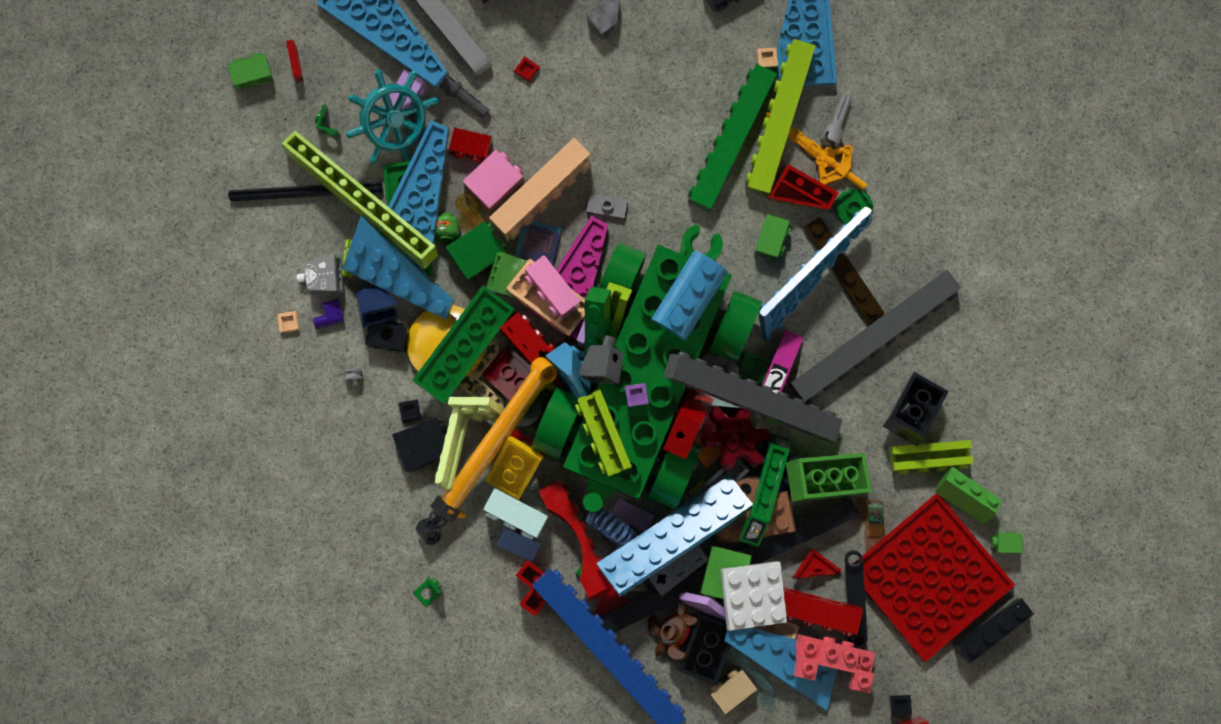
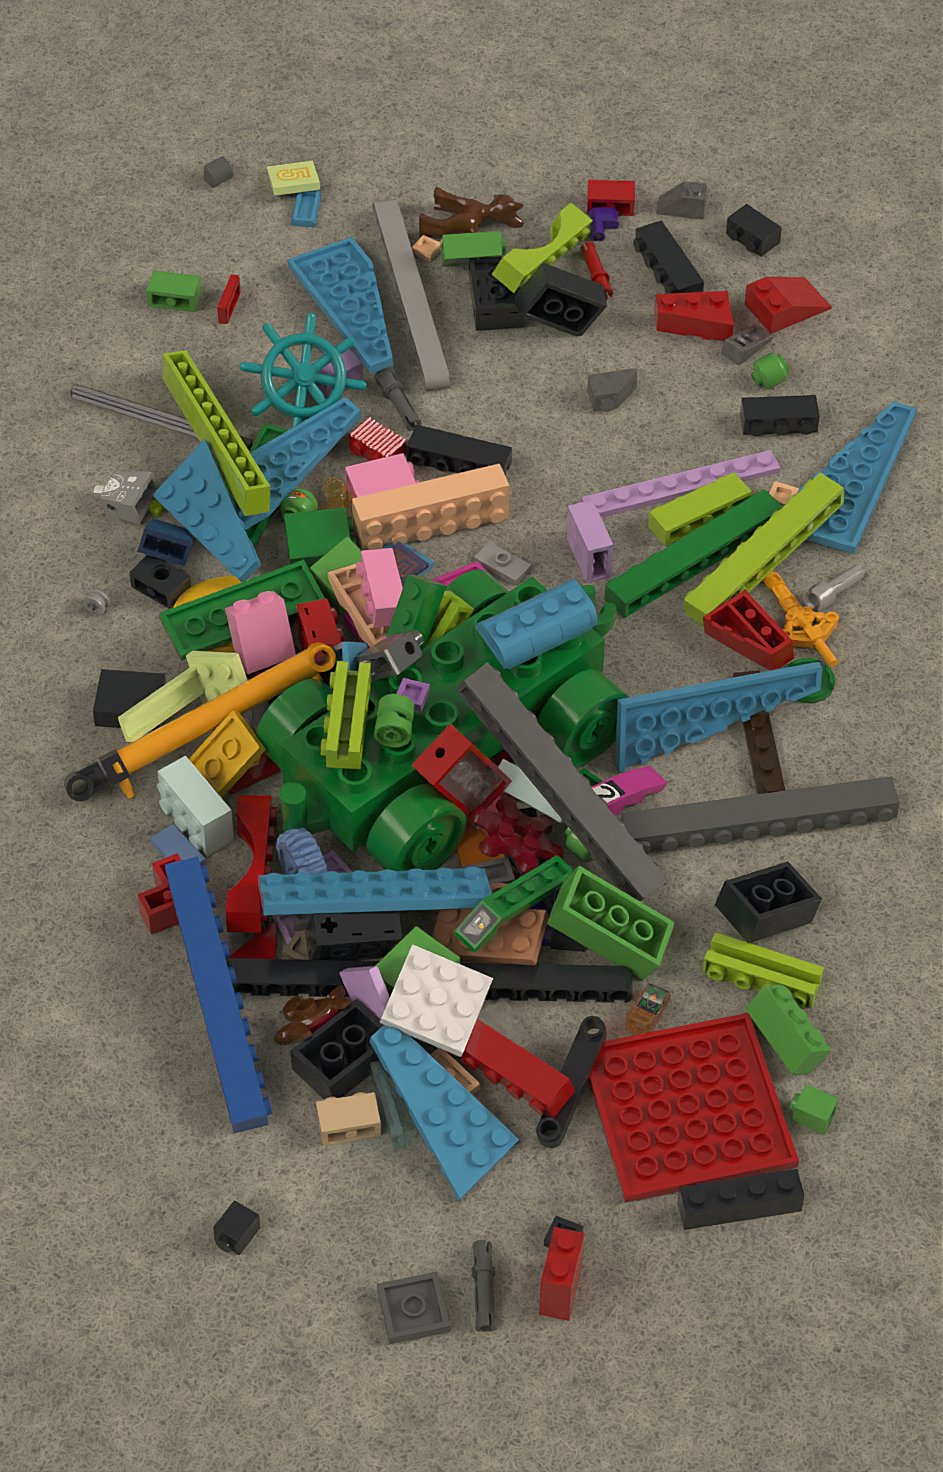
camera: 30 degrees right, 30 degrees down
(288, 322) = (57, 528): light nougat tile -> none
(320, 120) = (222, 361): green bracket -> none
(333, 314) = (112, 540): dark purple piece -> none
(409, 410) = (139, 662): black tile -> none
(434, 585) = (45, 847): green bracket -> none
(487, 360) = (260, 631): none -> bright pink brick
(526, 69) = (488, 404): red tile -> none
(531, 127) = (454, 451): none -> black brick
(638, 425) = (394, 720): none -> bright green wheel
(661, 166) = (589, 541): none -> lavender brick
(693, 79) = (681, 483): none -> lavender plate
(718, 97) = (696, 508): none -> lime brick
(772, 237) = (686, 664): bright green brick -> none
(815, 566) = (539, 1027): red tile -> none
(844, 656) = (505, 1126): coral bracket -> none

